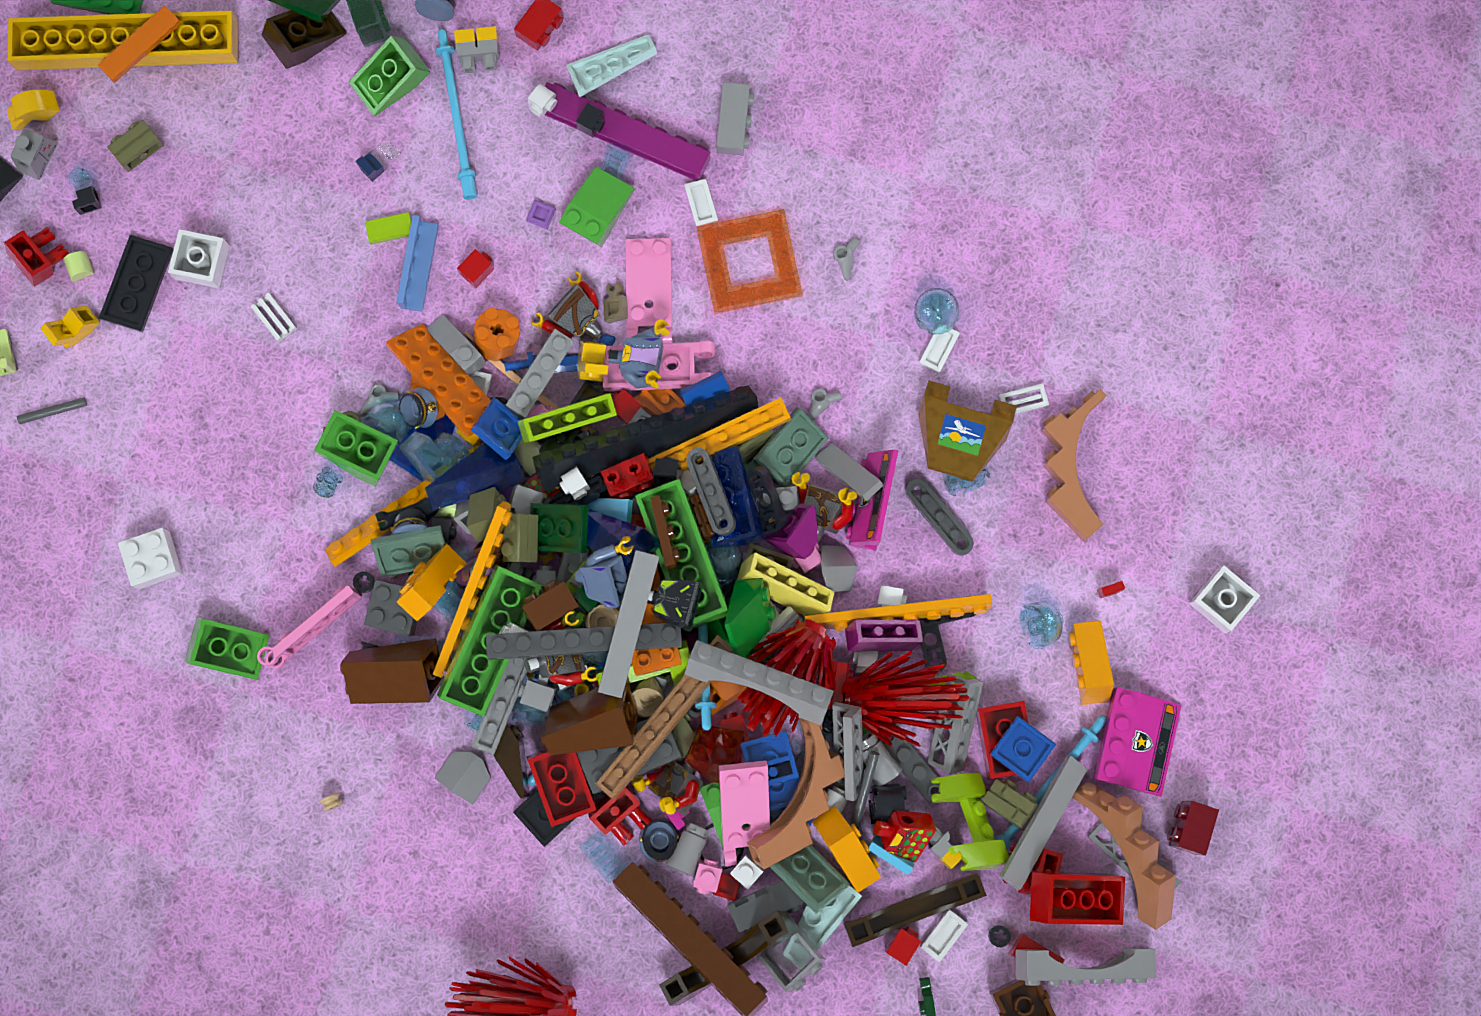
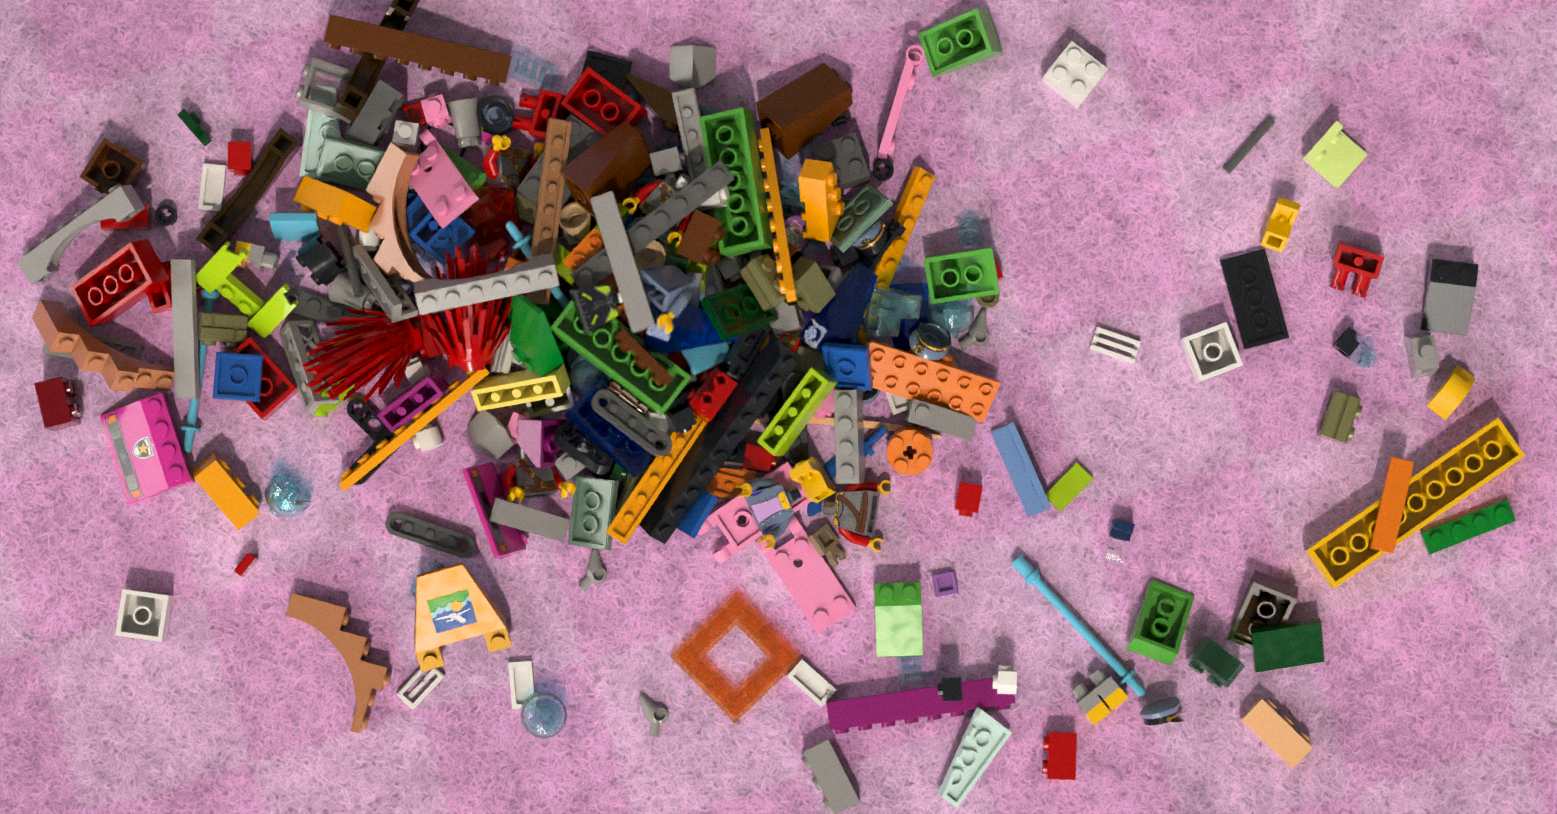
camera: 145 degrees right, 5 degrees up
(78, 265) = (1314, 282): yellowish green brick -> none
(574, 483) = (750, 356): white plate -> none
(906, 833) = (292, 245): red torso -> none

